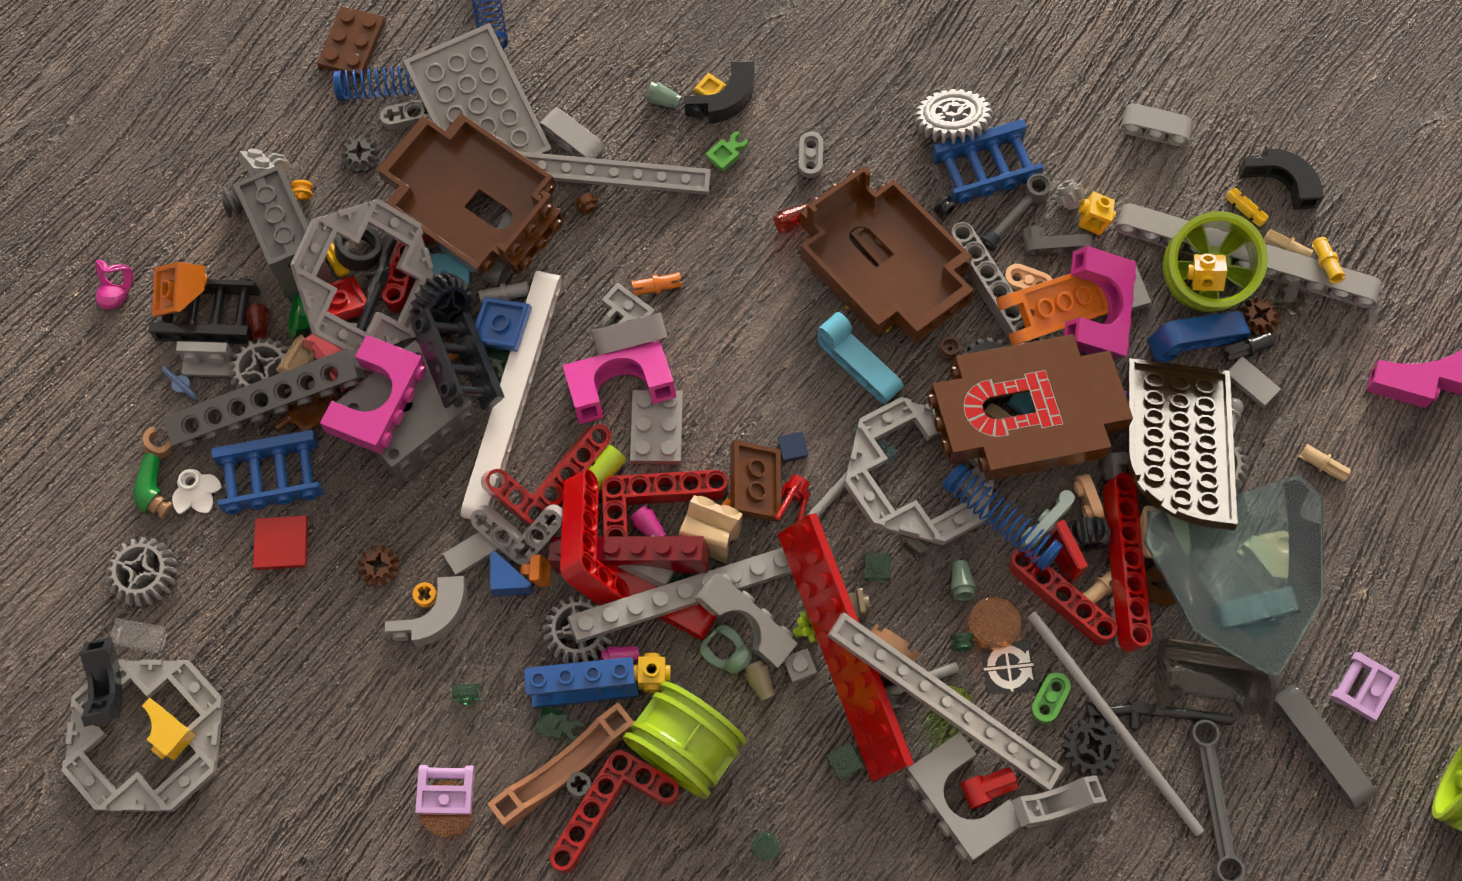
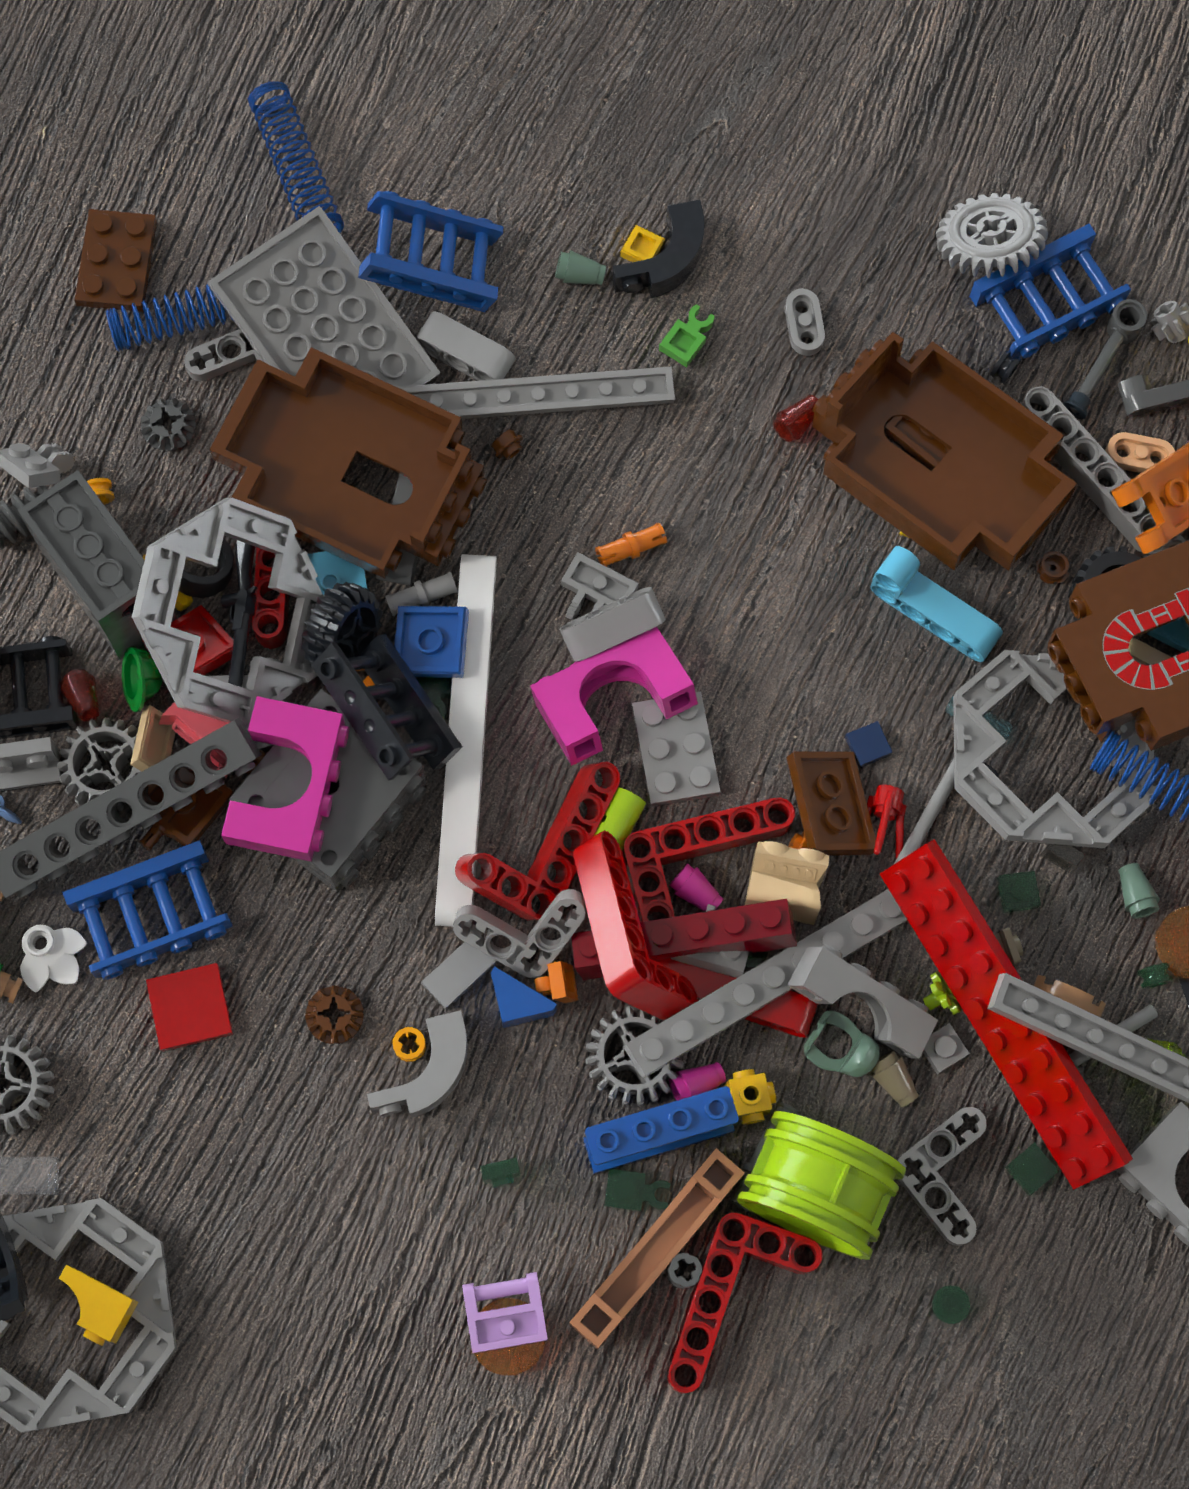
camera: 15 degrees left, 5 degrees up
(552, 85) = (412, 275): none -> blue fence
(772, 745) = (931, 1163): none -> light grey beam

